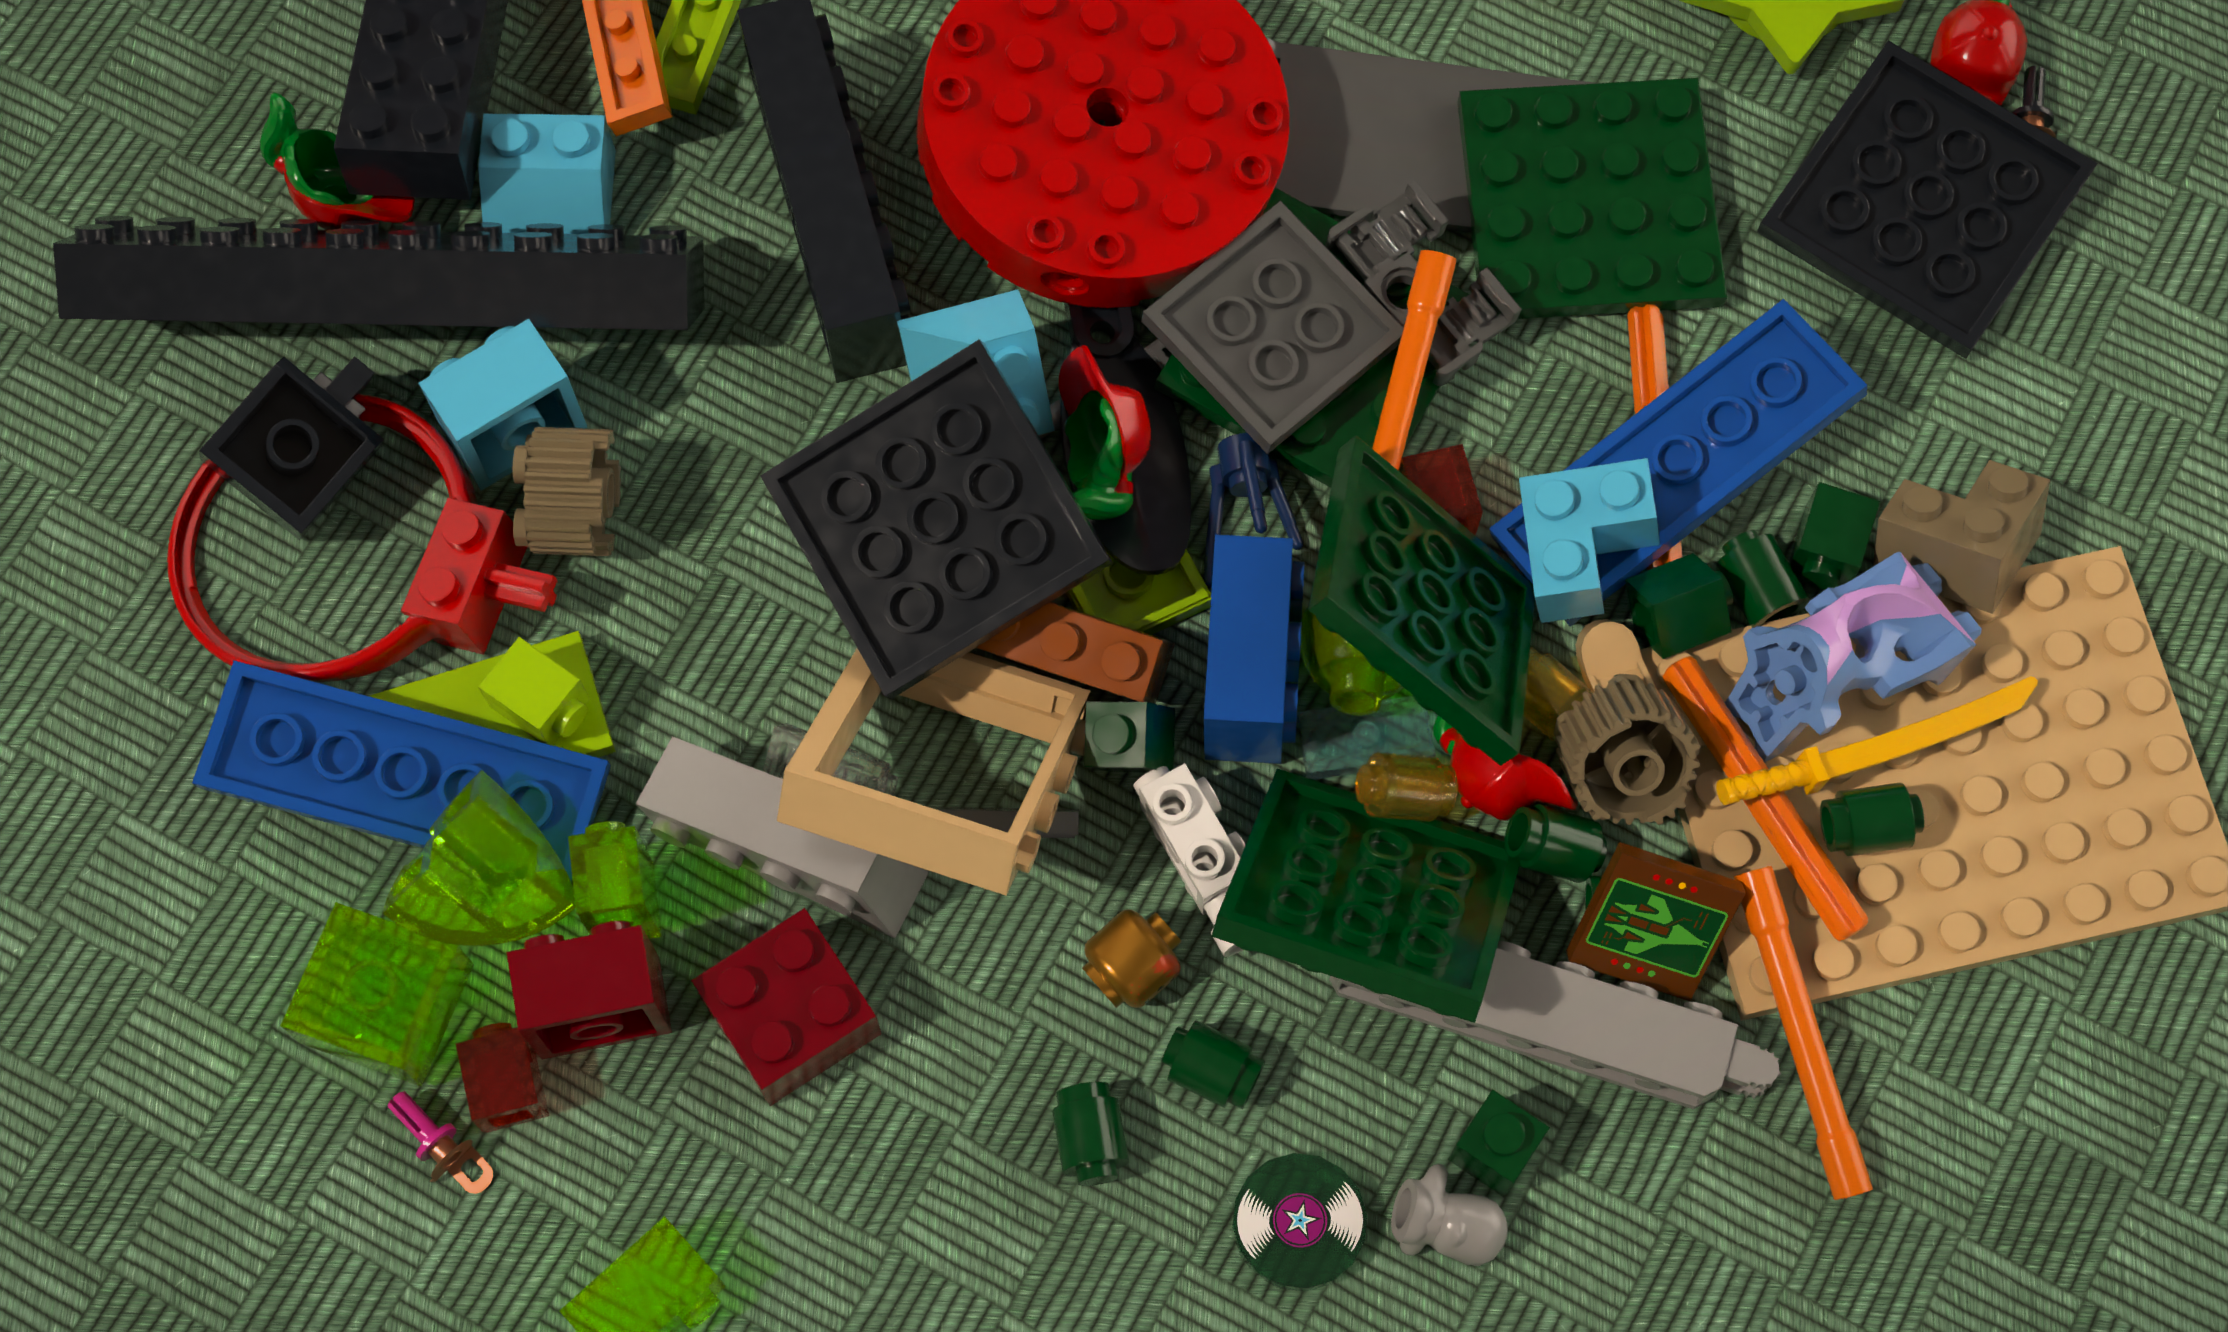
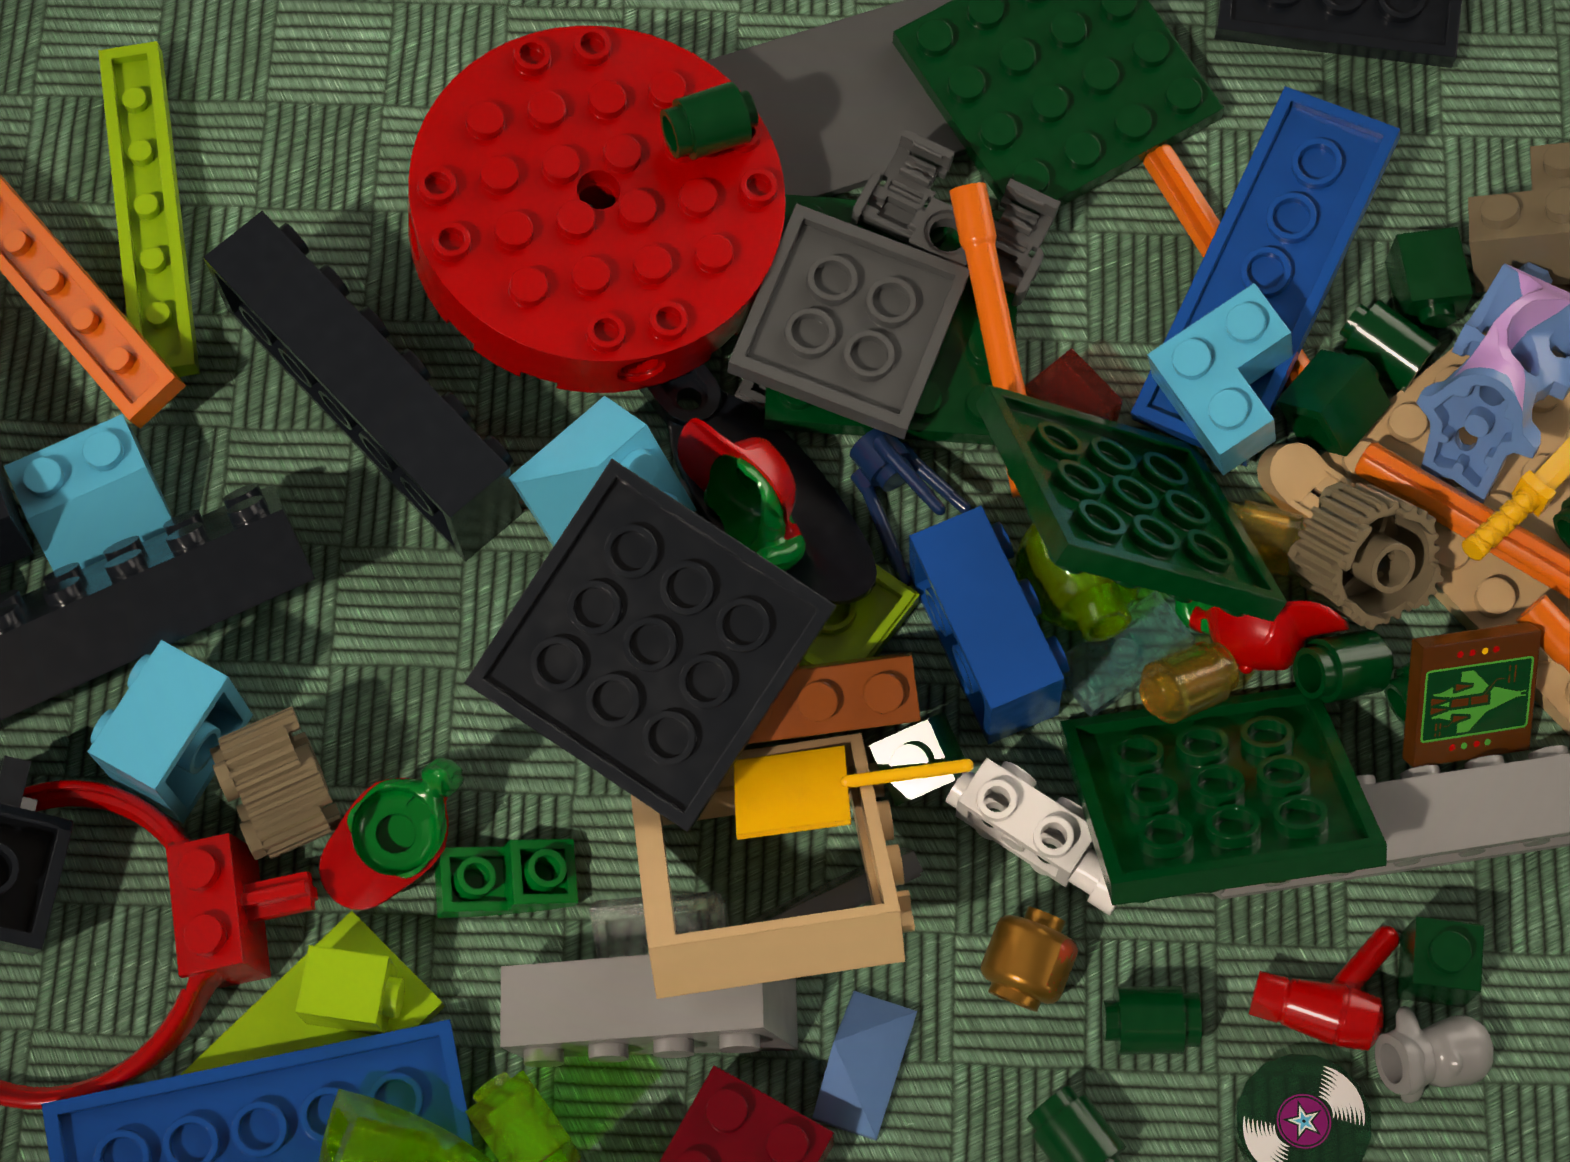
camera: 25 degrees left, 0 degrees up
(639, 581) = (389, 837): none -> green hair
(723, 669) = (506, 879): none -> green slope
(942, 977) = (864, 1065): none -> medium blue slope
(1013, 713) = (810, 789): none -> yellow piece
(1233, 90) = (709, 121): none -> dark green brick
(1381, 1139) = (1333, 1010): none -> red piece

